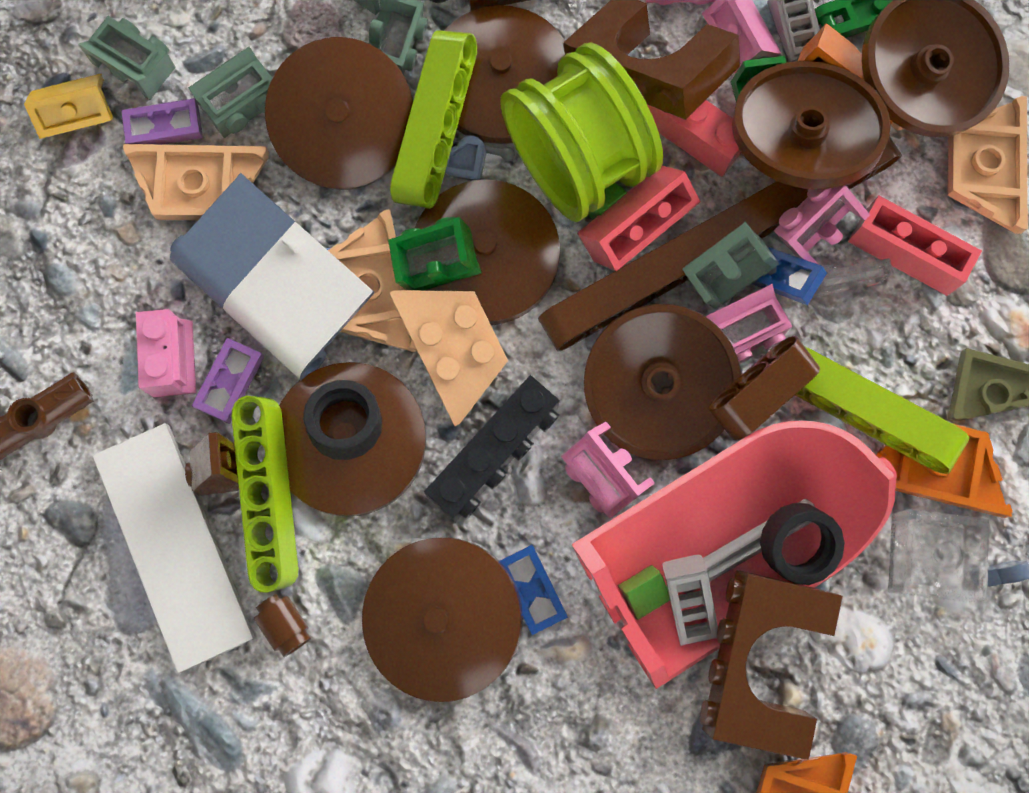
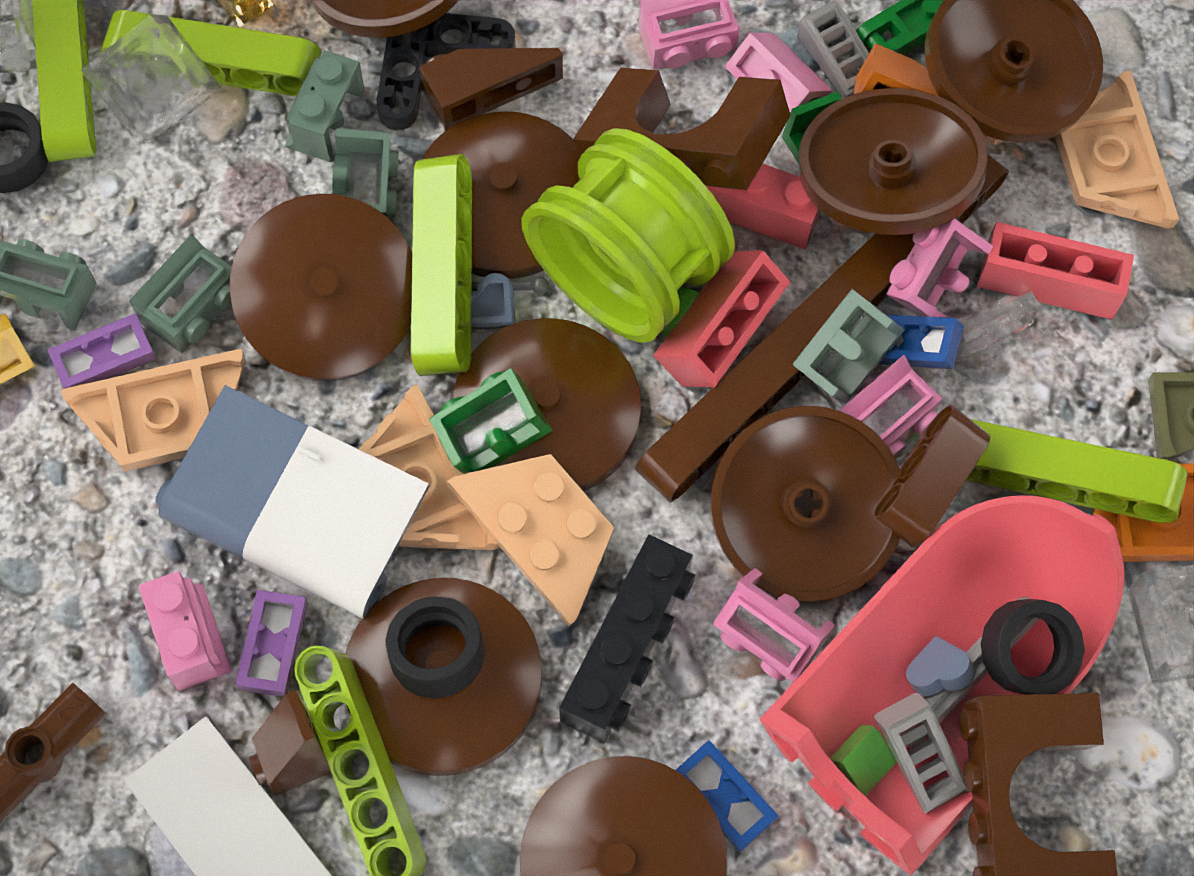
camera: 15 degrees left, 10 degrees down
(726, 539) = (940, 668): none -> sand blue tile

